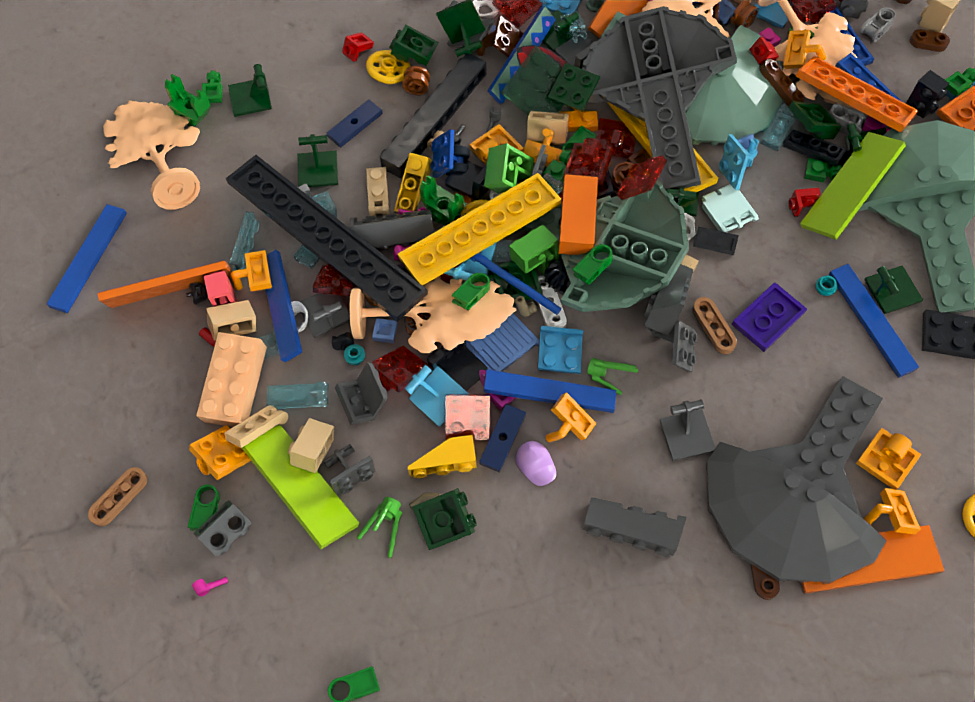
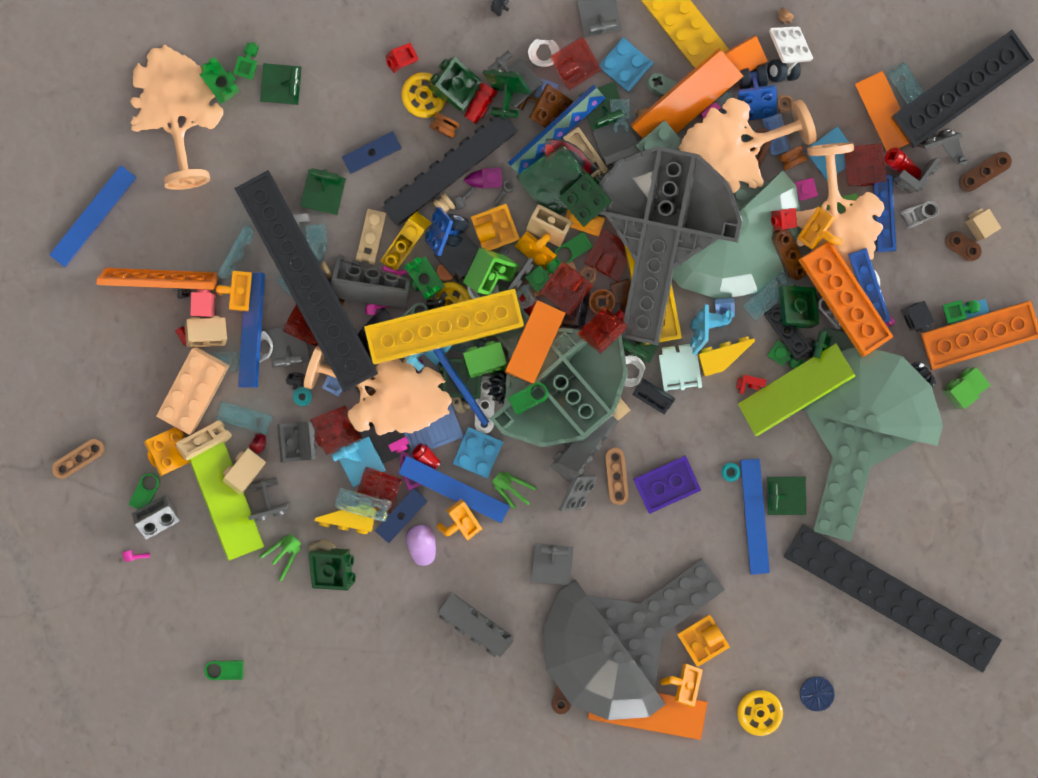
camera: 10 degrees right, 25 degrees up
(320, 413) = (258, 443): none -> dark red piece
(443, 57) = (478, 106): none -> red axle
(457, 433) = (362, 504): none -> clear light blue plate
(468, 294) = (413, 386): green piece -> none
(472, 115) = (485, 178): none -> magenta plate
(474, 362) = (399, 445): none -> dark pink plate
(505, 364) = (424, 455): none -> red cone
(762, 187) = (719, 359): none -> yellow slope

